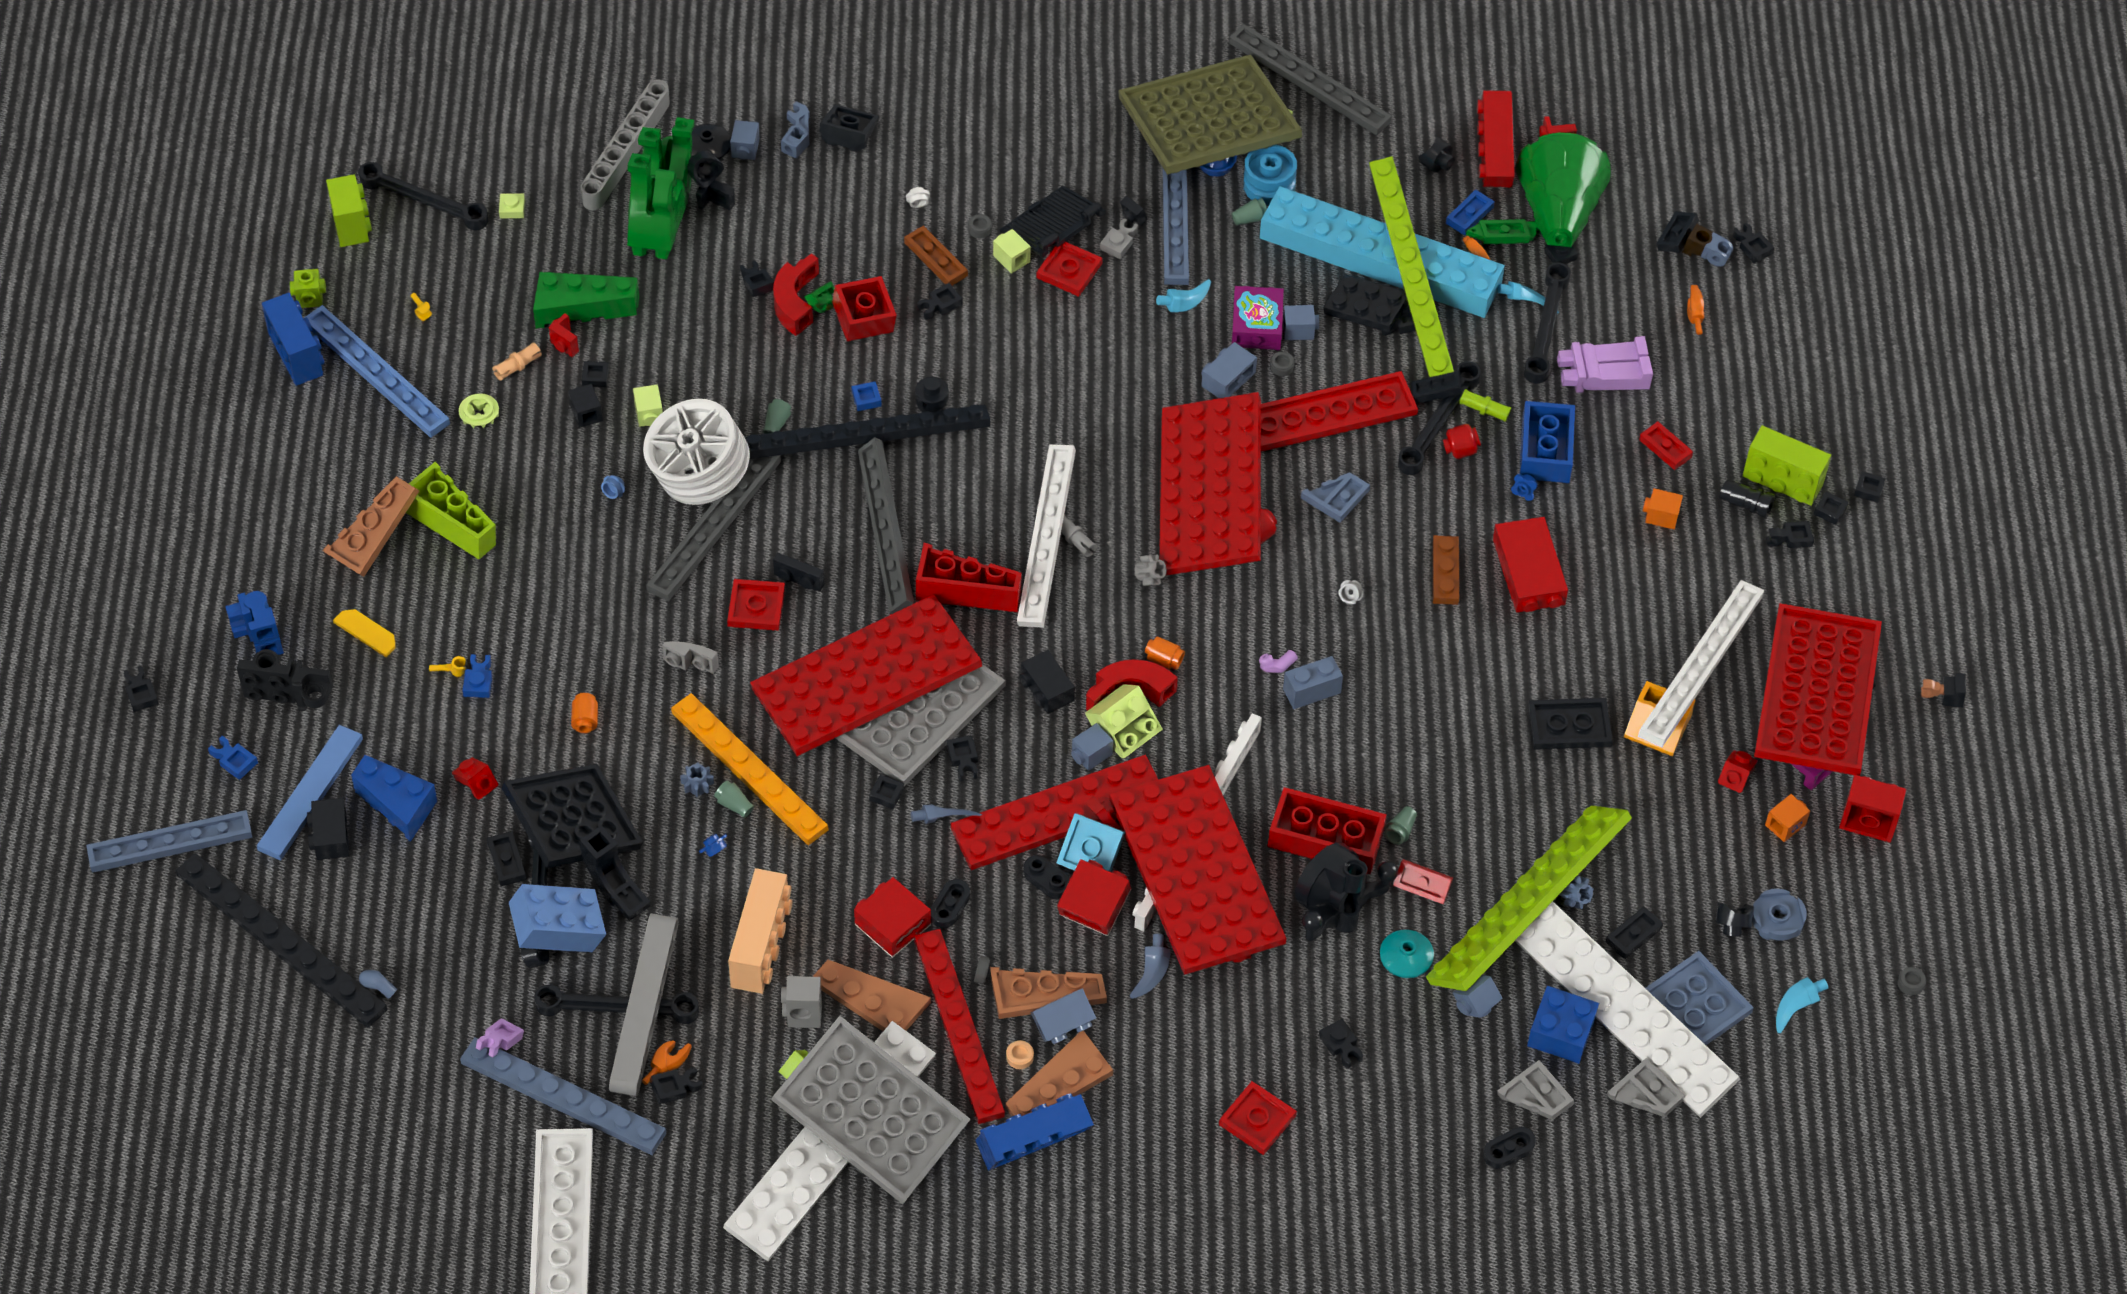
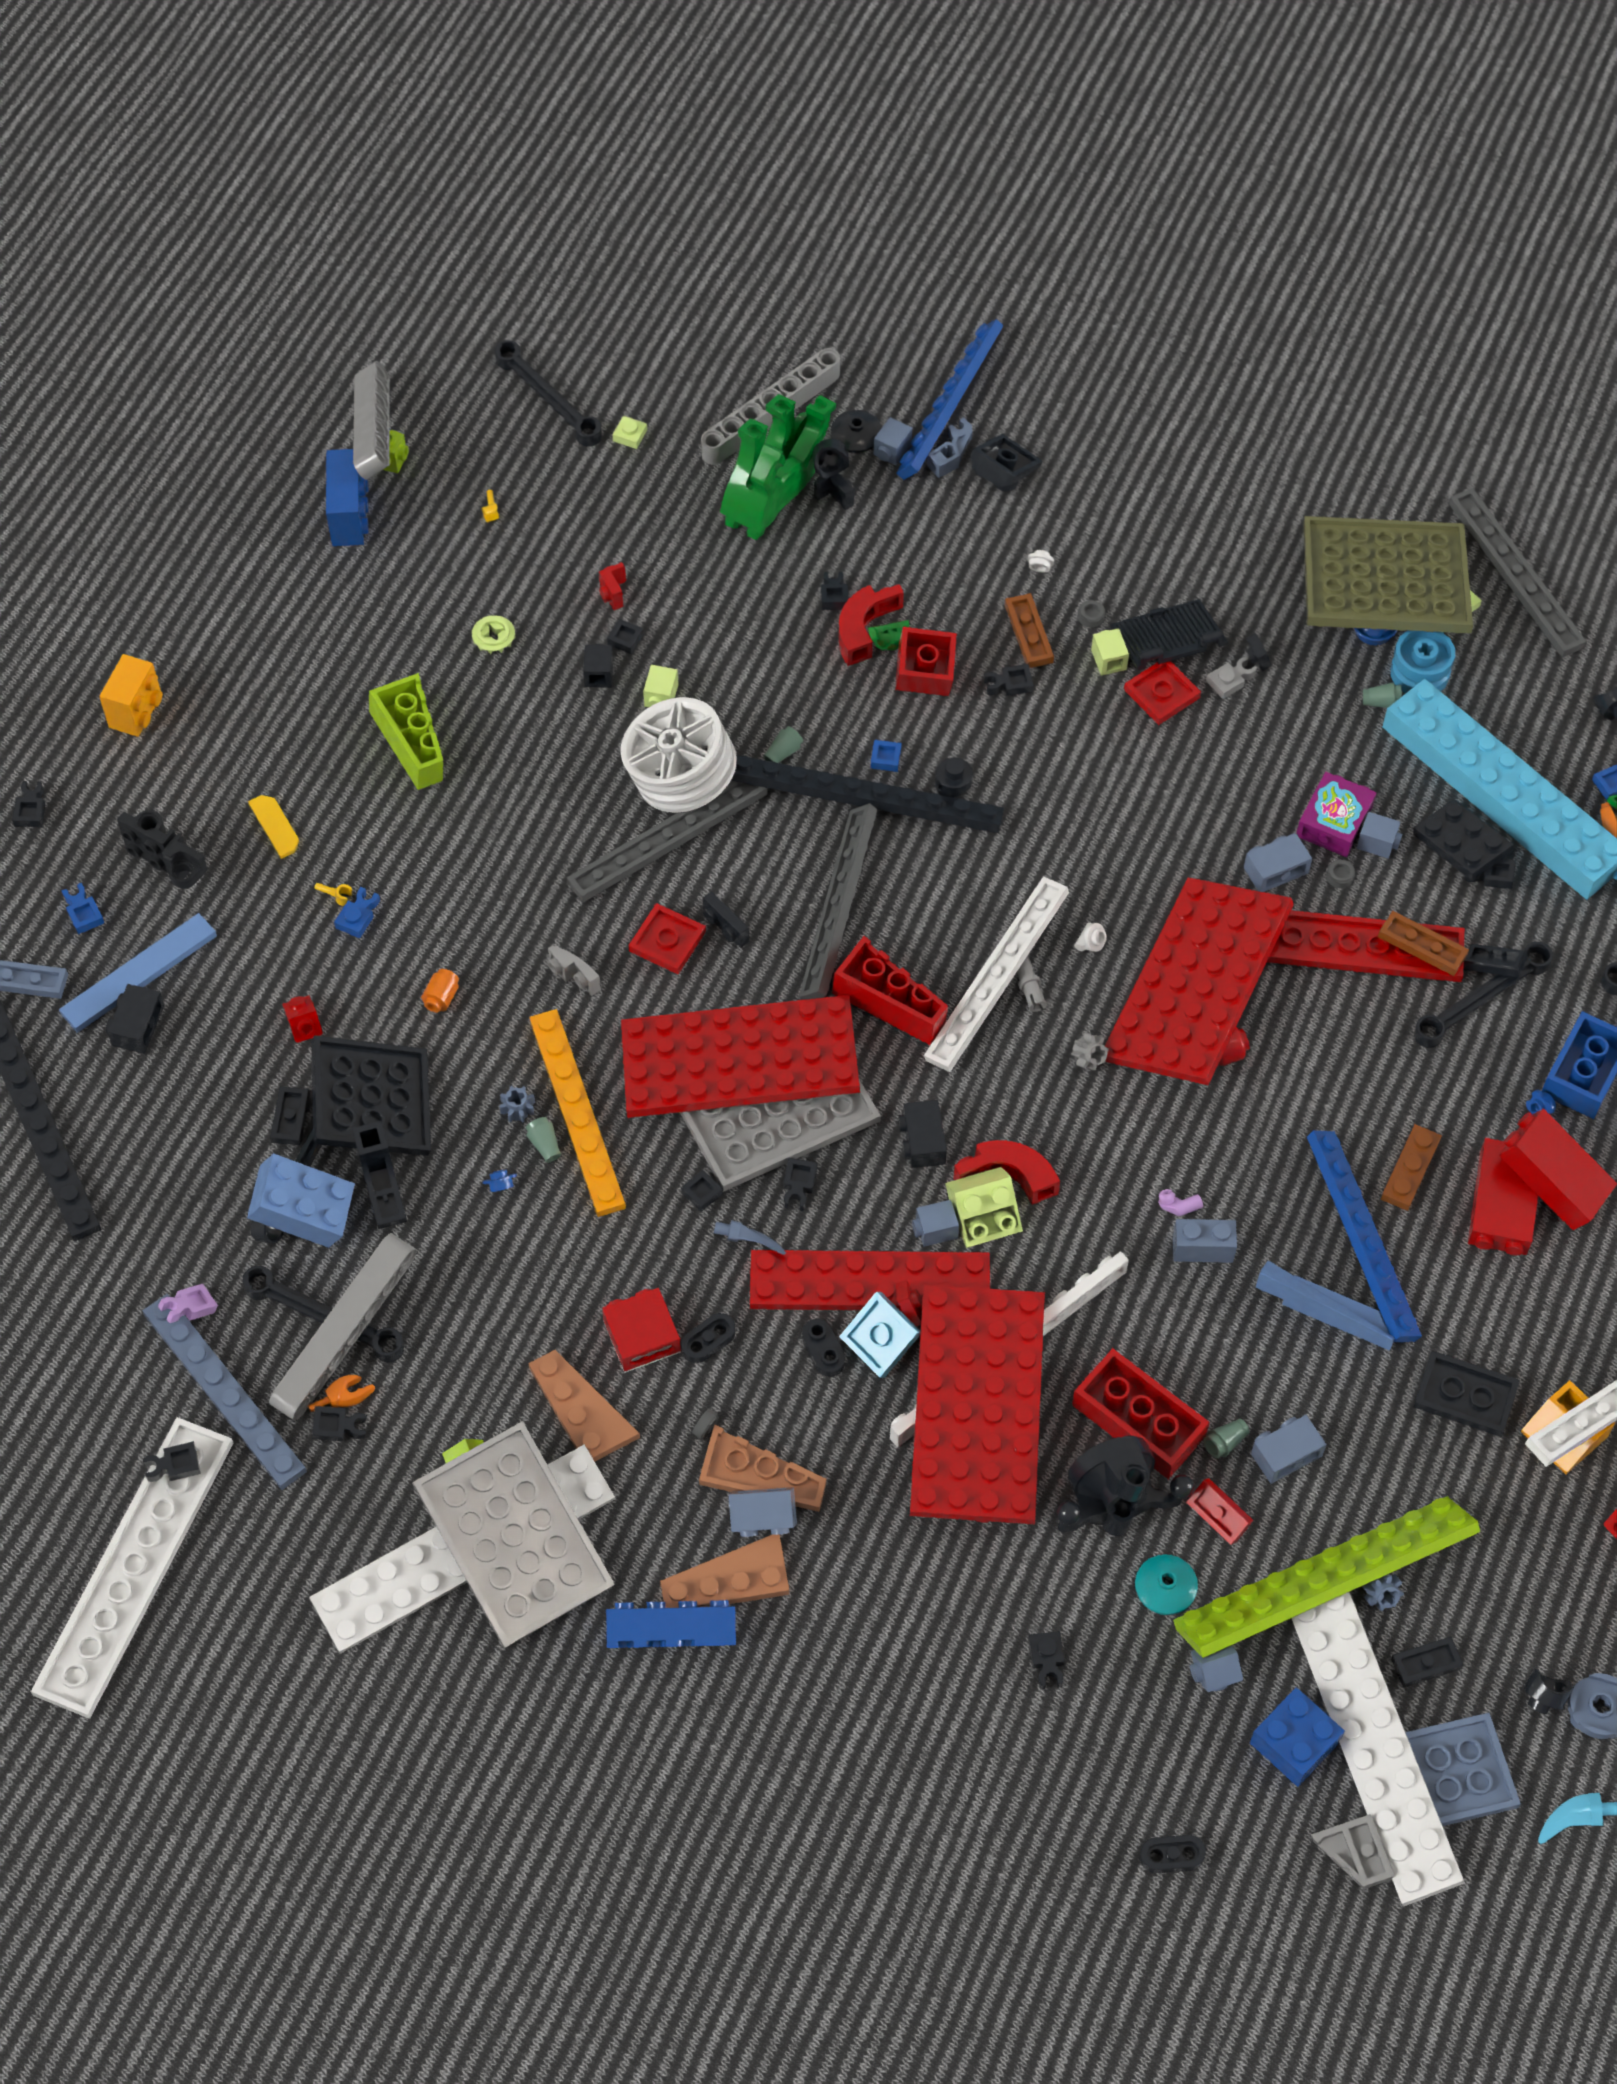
camera: 25 degrees right, 5 degrees up
(187, 565) = (131, 695): none -> light orange brick
(255, 618) = (168, 779): blue hips -> none
(286, 265) = (371, 420): none -> light grey beam
(349, 210) = (463, 383): lime brick -> none
(366, 537) = (317, 727): nougat wing -> none
(375, 980) = (100, 1194): sand blue arm -> none
(377, 372) = (414, 559): medium blue plate -> none
(395, 794) = (215, 1007): blue wedge -> none
(517, 361) = (555, 596): light nougat pin -> none
(557, 1162) = (178, 1463): none -> black plate
(584, 297) = (650, 552): green wedge -> none
(613, 486) = (585, 761): medium blue plate -> none
(759, 931) = (496, 1293): light nougat brick -> none
(776, 90) = (946, 403): none -> blue plate
(802, 1002) = (502, 1387): light grey brick -> none
(959, 1026) = (654, 1477): red plate -> none
(1020, 1054) = (702, 1533): light nougat tile -> none
(1094, 896) = (858, 1390): red piece -> none
(1107, 482) = (1092, 938): none -> white plate
(1156, 965) = (889, 1491): sand blue bar -> none
(1164, 653) = (1062, 1148): orange brick -> none
(1175, 228) = (1294, 687): sand blue plate -> none
(1184, 300) = (1269, 767): medium azure bar -> none
(1257, 1118) = (916, 1706): red plate -> none
(1337, 496) = (1331, 1042): sand blue wing -> none
(1346, 596) = (1289, 1159): light grey plate -> none
(1376, 392) = (1423, 943): none -> dark orange plate
(1411, 267) = (1524, 818): lime plate -> none
(1430, 698) = (1325, 1305): none -> medium blue wedge
(1433, 633) = (1364, 1236): none -> blue plate
(1453, 815) = (1288, 1448): none -> sand blue brick
(1462, 441) = (1494, 1030): red head -> none
(1485, 405) = (1540, 999): lime pin -> none
(1537, 1091) = (1233, 1802): light grey wing -> none
(1562, 526) = (1557, 1168): none -> red brick

